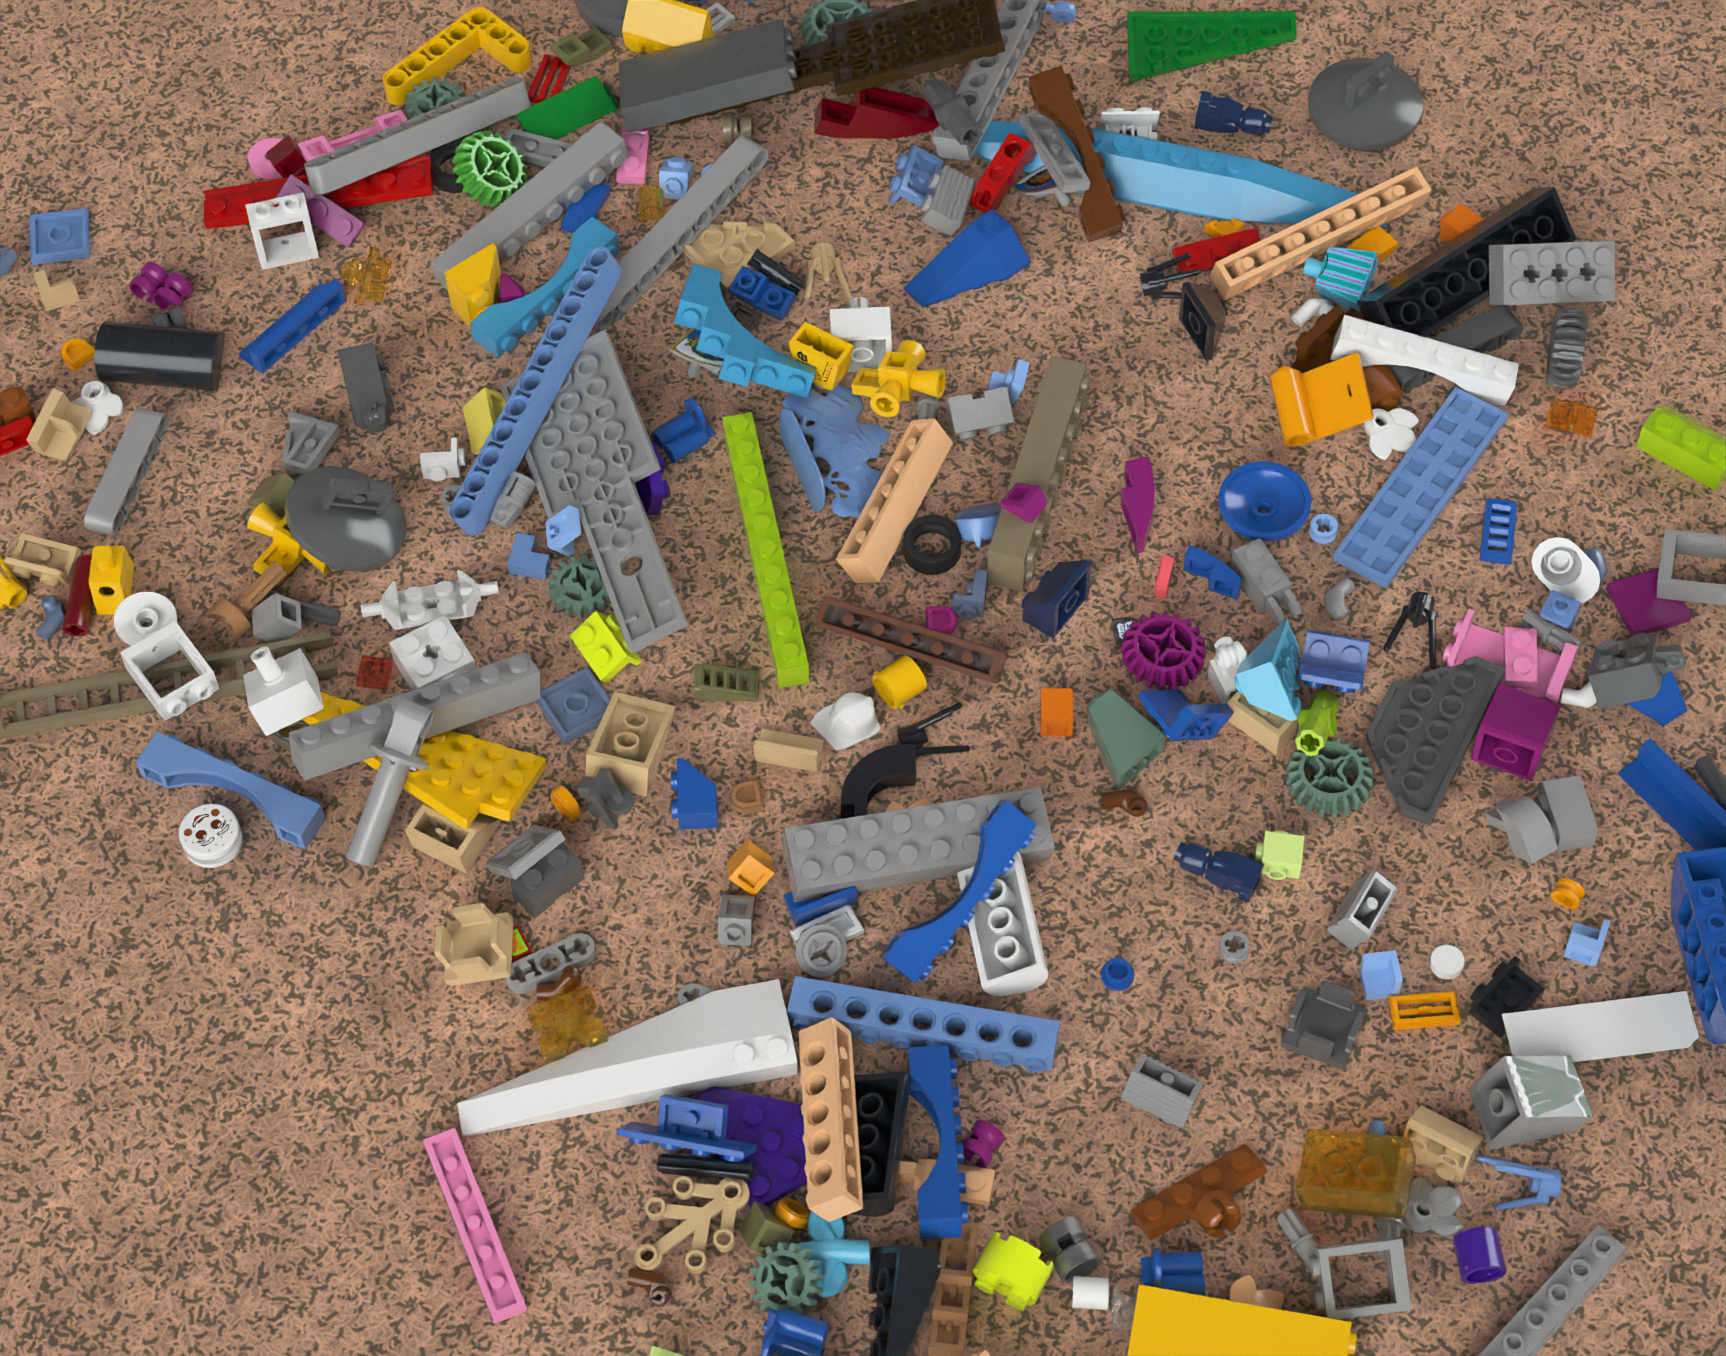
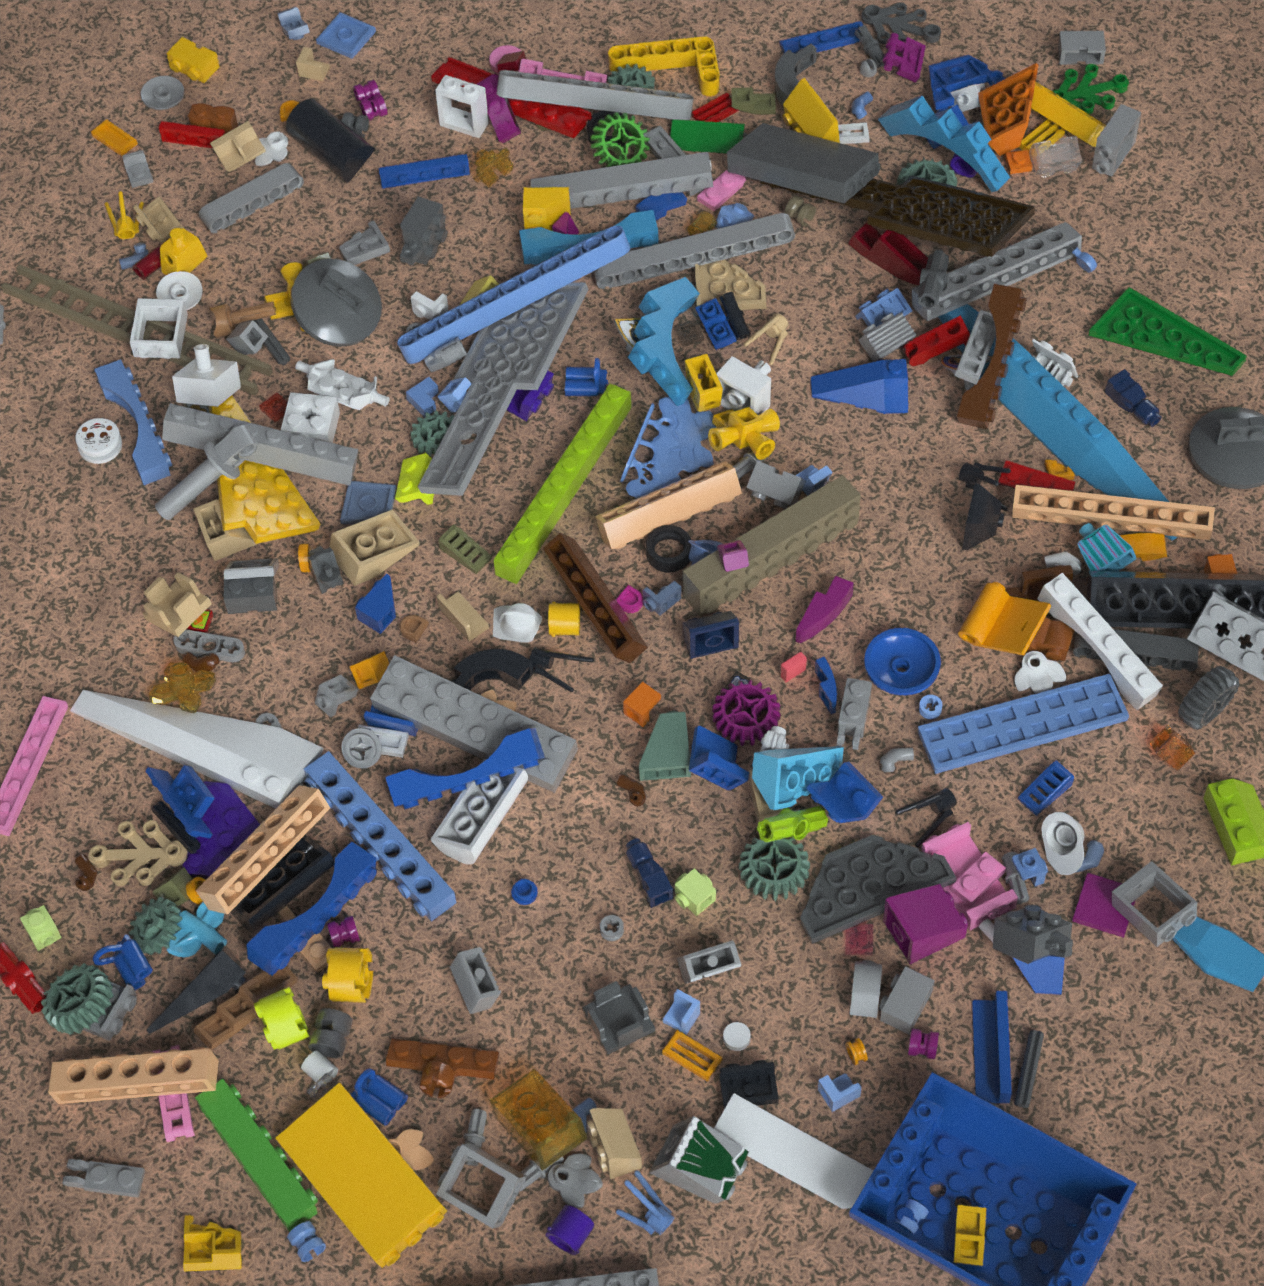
camera: 40 degrees right, 0 degrees up
(1035, 1177) = (348, 974): none -> yellow brick
(1471, 789) = (859, 940): none -> clear pink slope
(1620, 841) = (929, 1041): none -> magenta wheel

